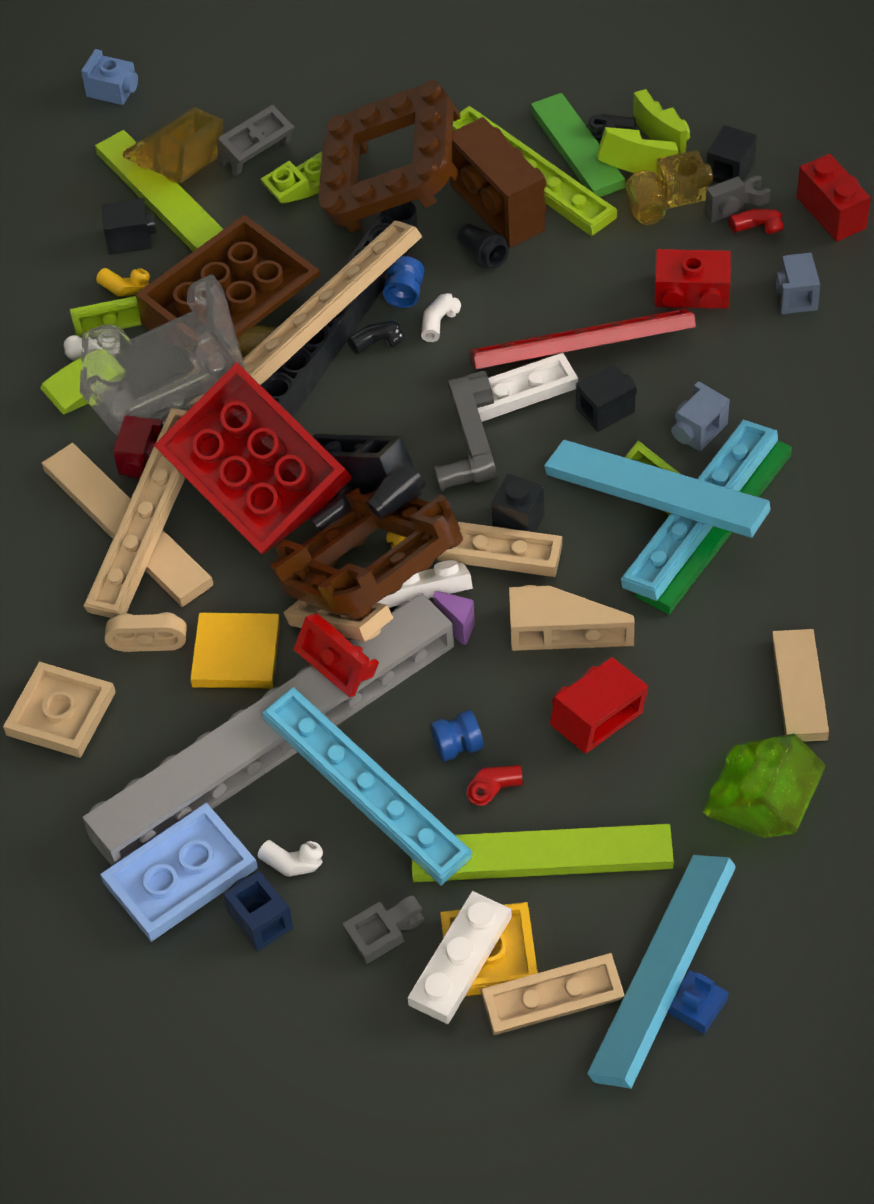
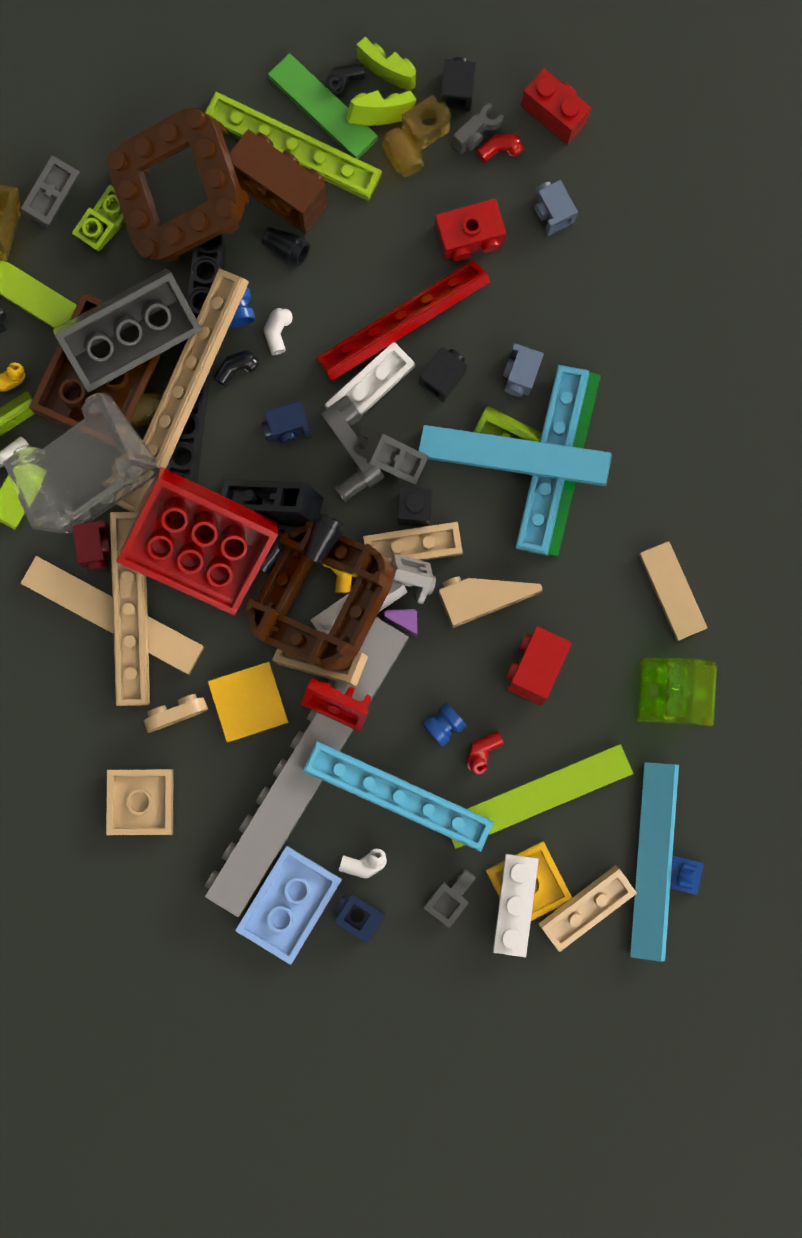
camera: 30 degrees left, 30 degrees up
(272, 240) = (127, 330): none -> dark grey slope
(408, 395) = (286, 423): none -> dark blue brick
(481, 564) = (416, 573): none -> light grey bracket
(513, 441) = (392, 455): none -> dark grey hinge

